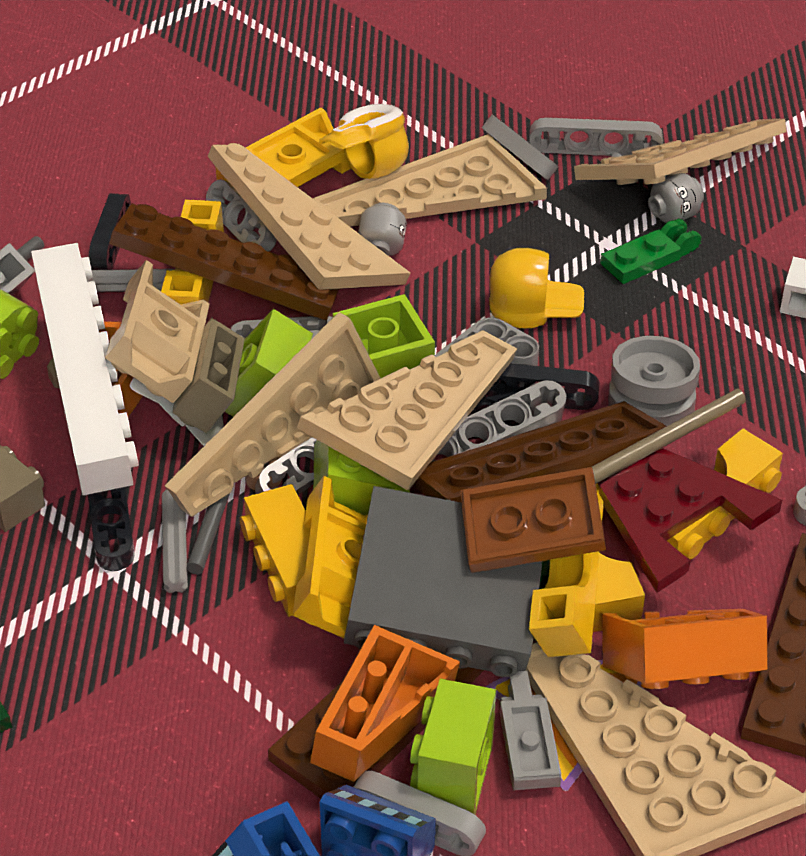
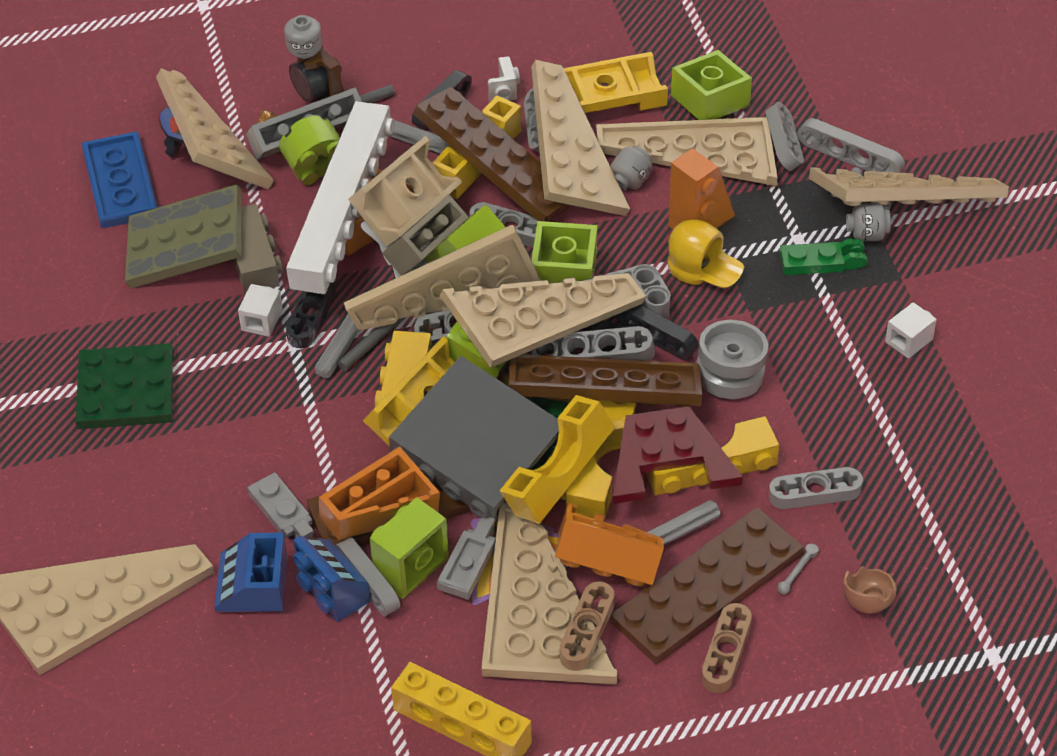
camera: 30 degrees right, 5 degrees up
(47, 540) = (260, 310): none -> white brick
(171, 188) = (506, 84): none -> white bracket
(242, 776) = (281, 507): none -> light grey hinge
(372, 140) = (665, 92): yellow piece -> none
(427, 117) = (711, 86): none -> lime brick
(489, 222) = (697, 191): none -> orange wedge
(532, 520) = (544, 419): dark orange tile -> none
(668, 435) = (683, 400): dark tan bar -> none
(734, 769) = (588, 639): none -> medium nougat beam
(741, 579) = (687, 522): none -> light grey axle

